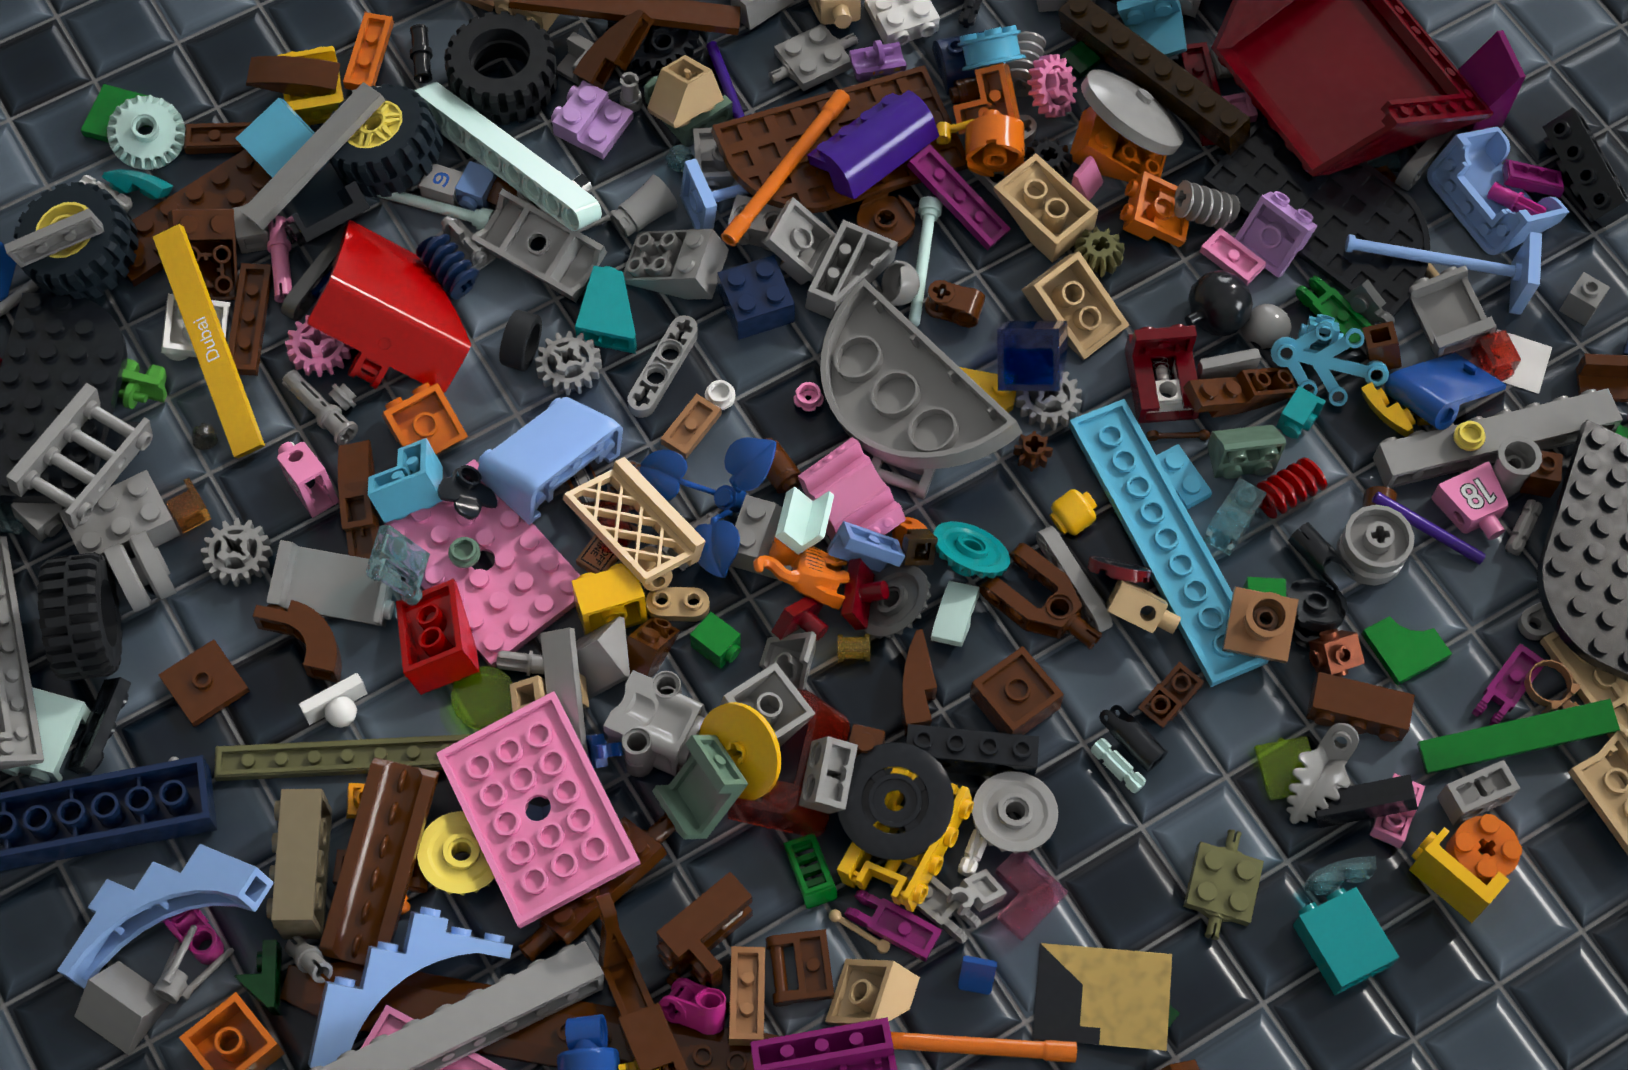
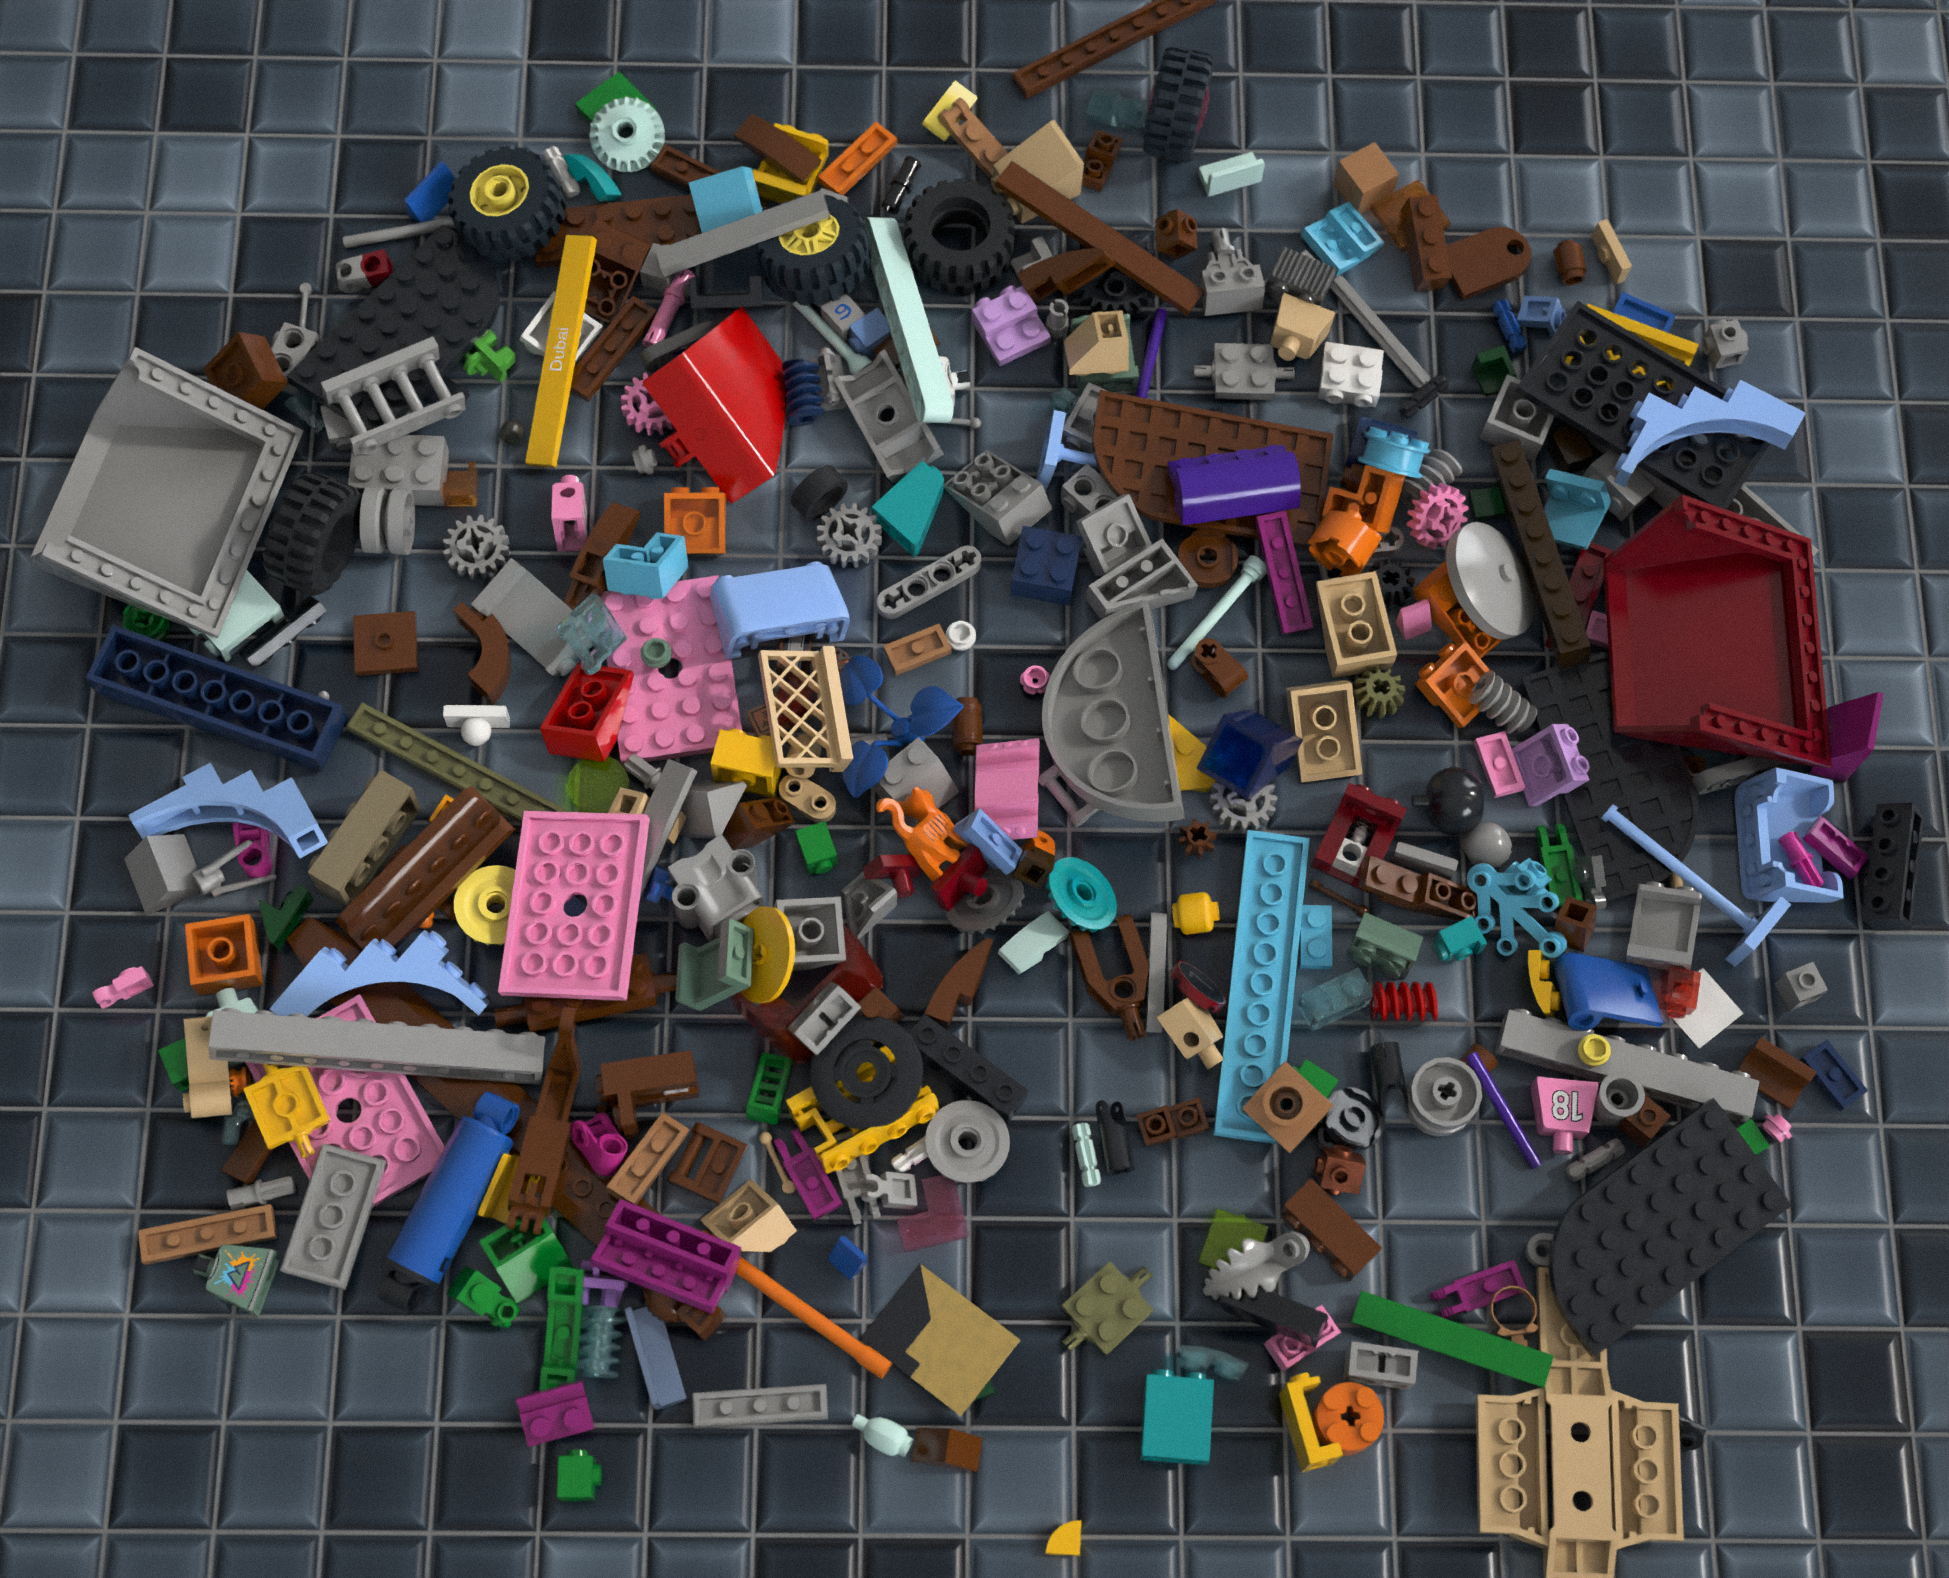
camera: 30 degrees right, 5 degrees up
(54, 238) = (484, 194): light grey tile -> none
(309, 959) = (323, 921): light grey pin -> none
(327, 415) = (622, 470): light grey pin -> none
(467, 492) = (687, 605): black plate -> none
(644, 206) = (1001, 430): light grey plant -> none
(743, 221) = (1070, 492): orange piece -> none
(803, 520) = (948, 786): light aqua panel -> none
(853, 647) = (927, 921): clear yellow bush -> none
(877, 60) = (1296, 406): medium lavender hips -> none
(900, 283) = (1179, 623): light grey hair -> none
(945, 130) = (1309, 504): yellow hand -> none
(1016, 694) = (1036, 1043): reddish brown container -> none
(1405, 651) = (1407, 1206): green tile -> none

